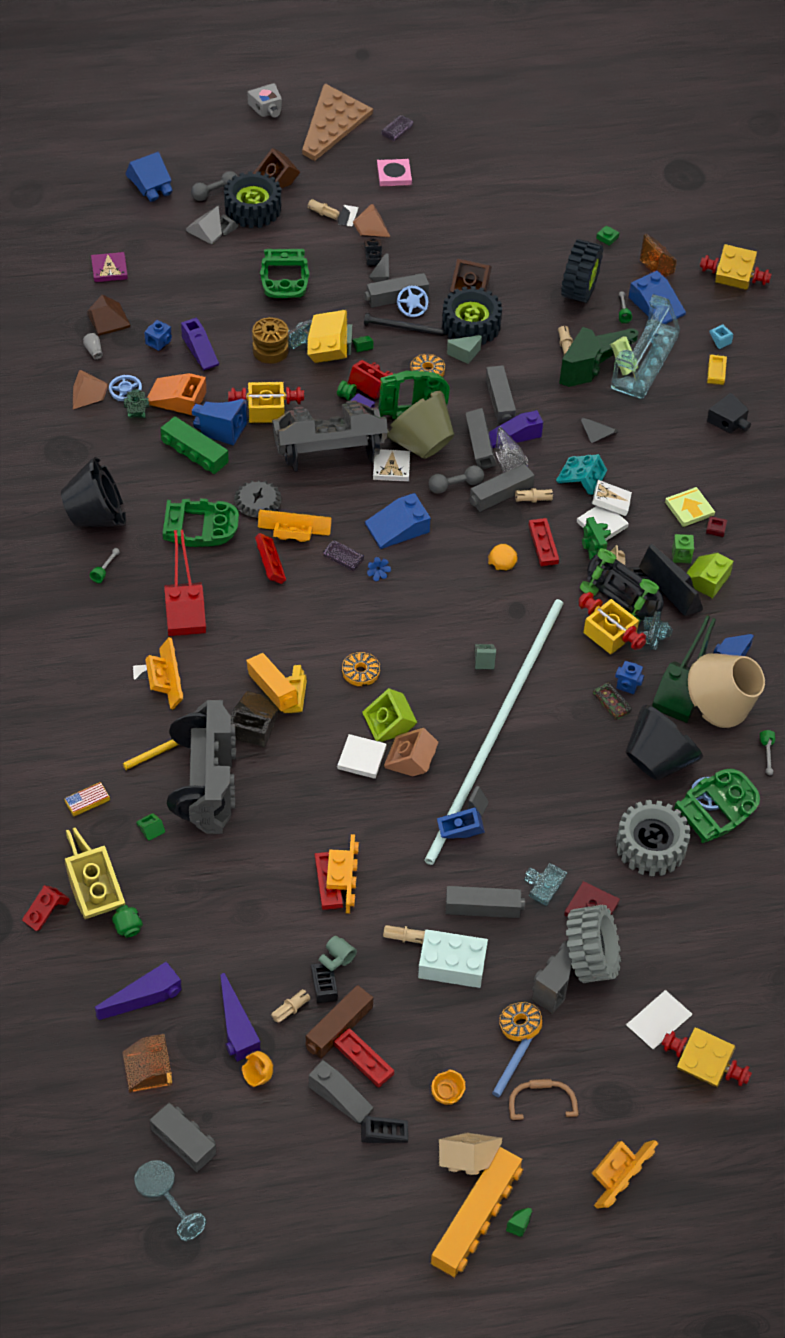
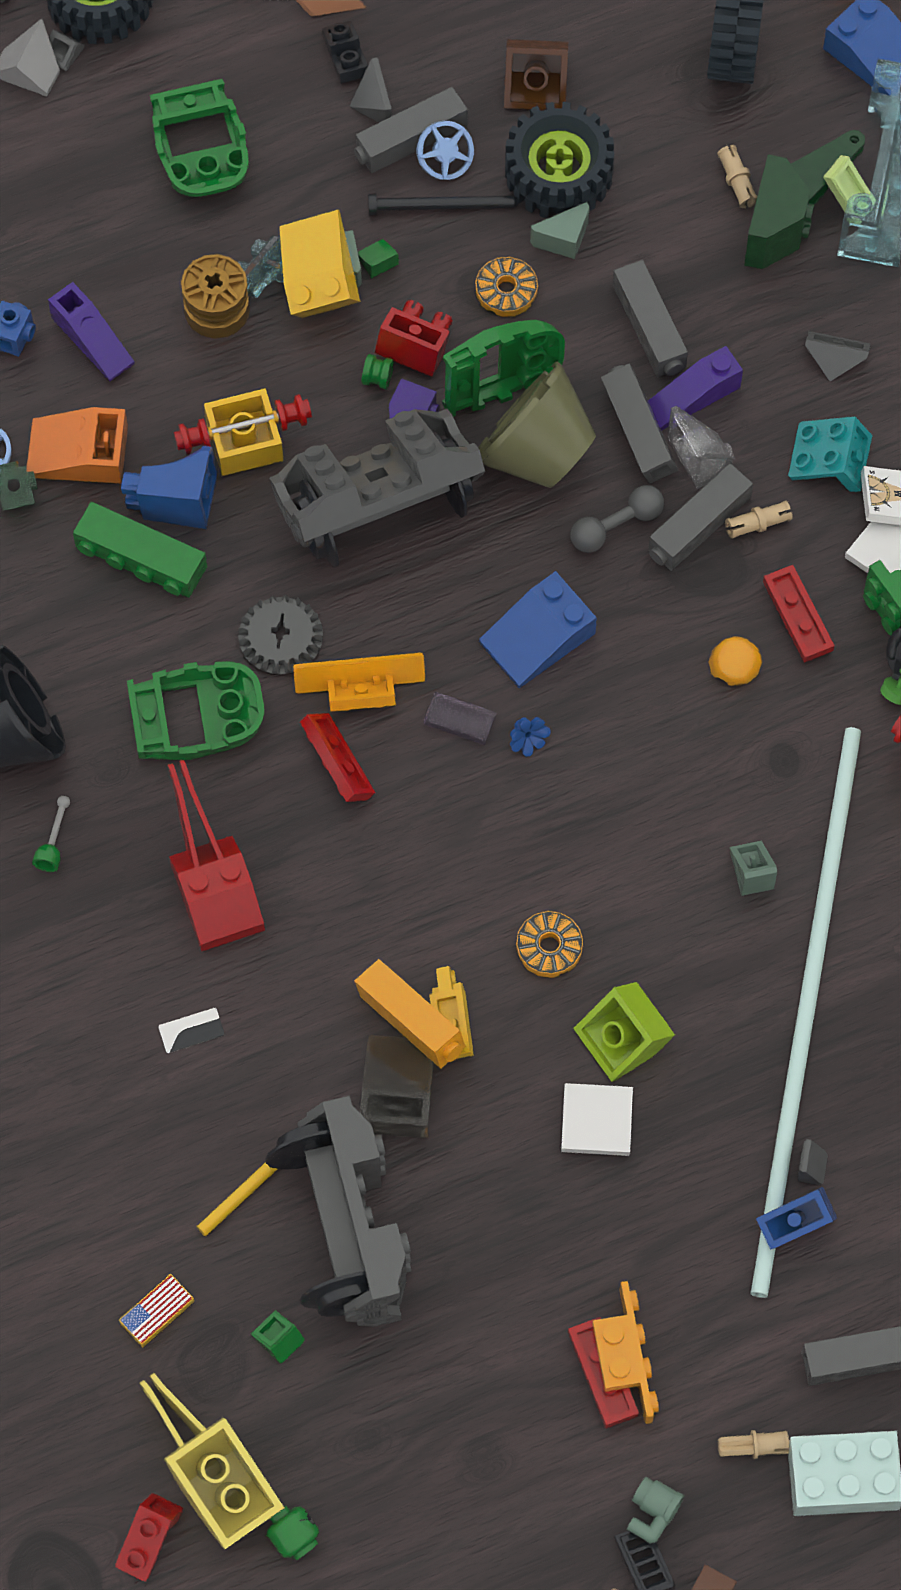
camera: 10 degrees left, 15 degrees up
(164, 673) = (219, 1034): light orange bracket -> none
(392, 465) = (497, 511): white tile -> none
(412, 752) = (678, 1094): nougat slope -> none
(627, 315) = (827, 92): green hinge -> none

